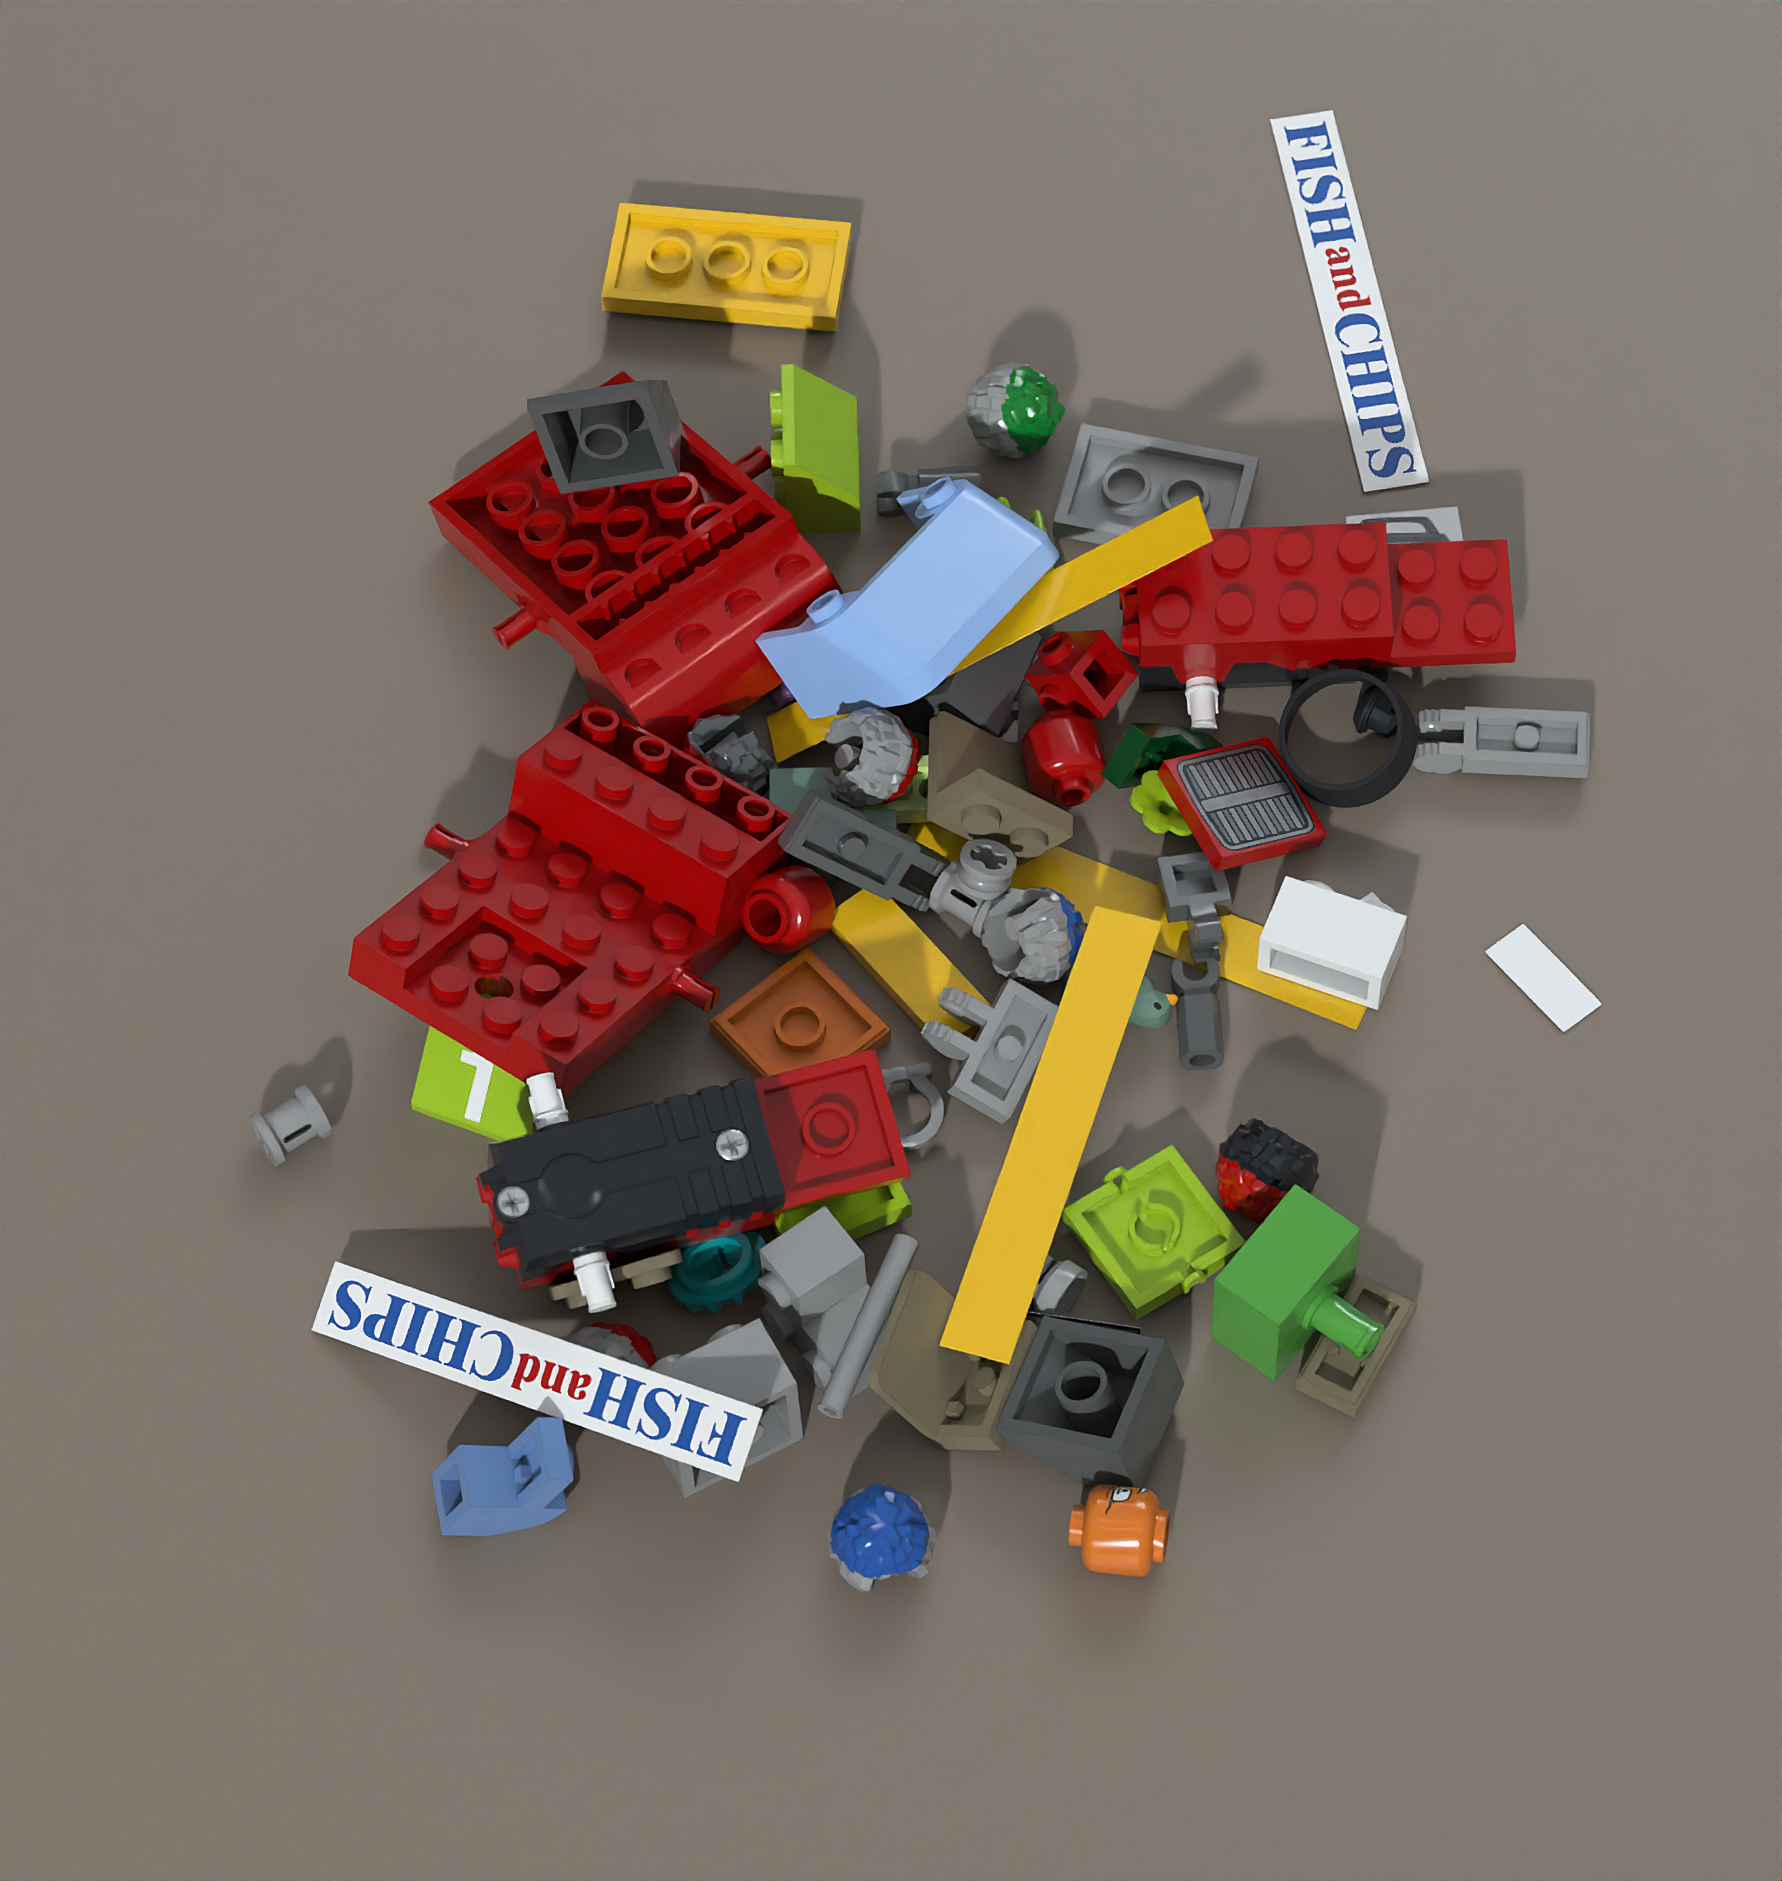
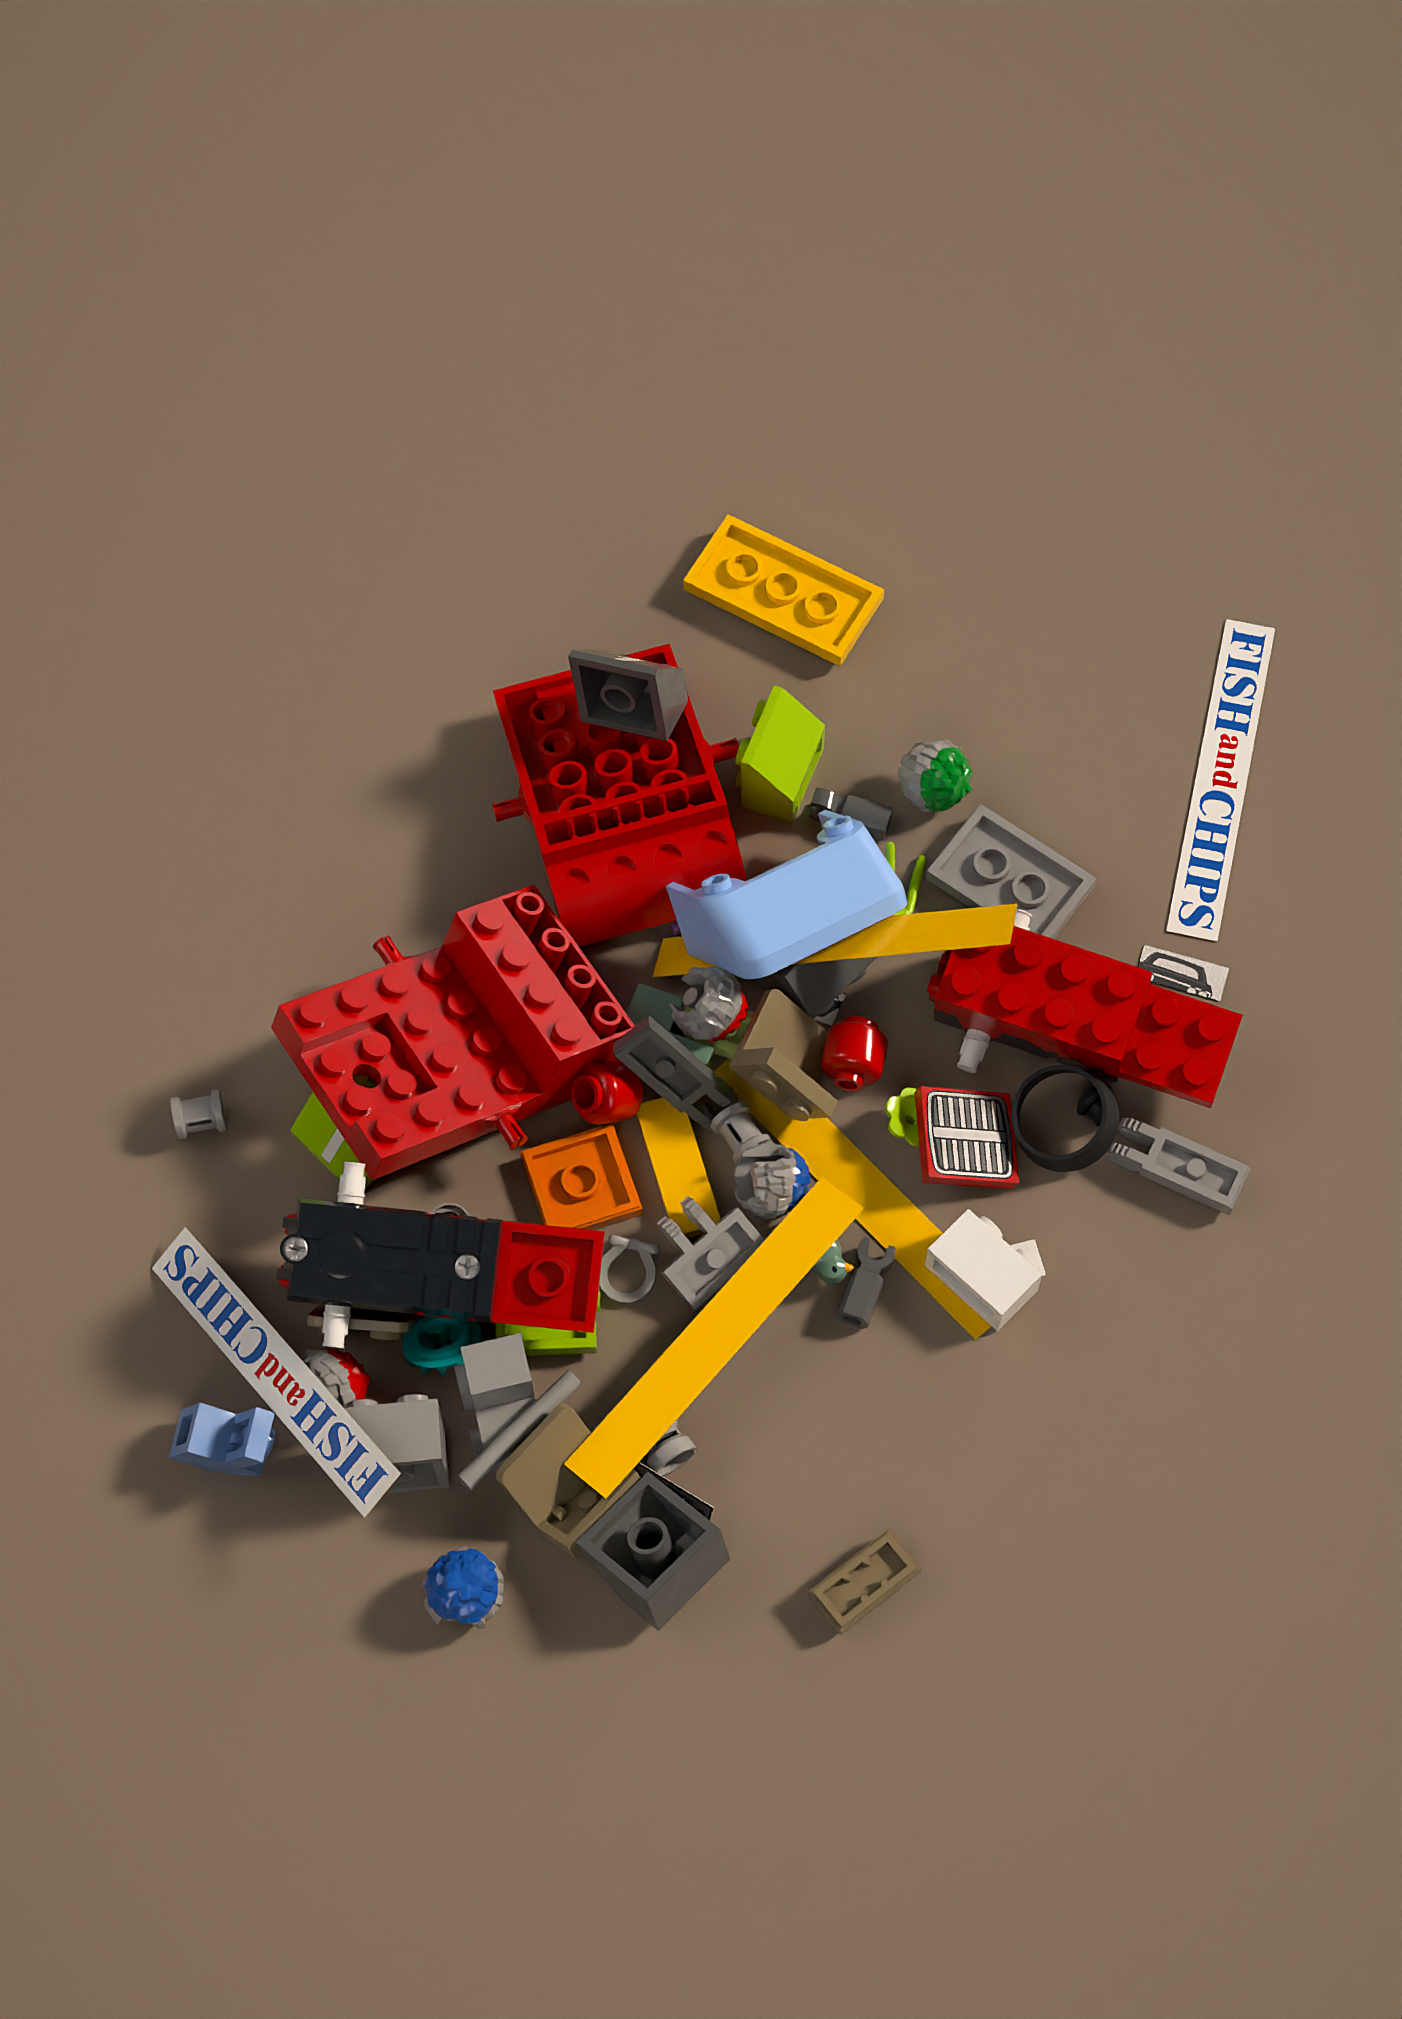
camera: 20 degrees right, 5 degrees up
(726, 747) = (618, 961): dark grey piece -> none
(985, 869) = (743, 1117): light grey bush -> none
(1080, 673) = (892, 995): red brick -> none
(1120, 1530) = (632, 1653): orange head -> none
(1147, 747) = (921, 1069): dark green slope -> none
(1153, 1231) = (759, 1436): lime plate -> none
(1196, 895) = (901, 1194): dark grey plate -> none
(1261, 1167) = (853, 1426): black piece -> none
(1290, 1286) = (832, 1523): bright green brick -> none
(1543, 977) = (1129, 1354): white sticker -> none

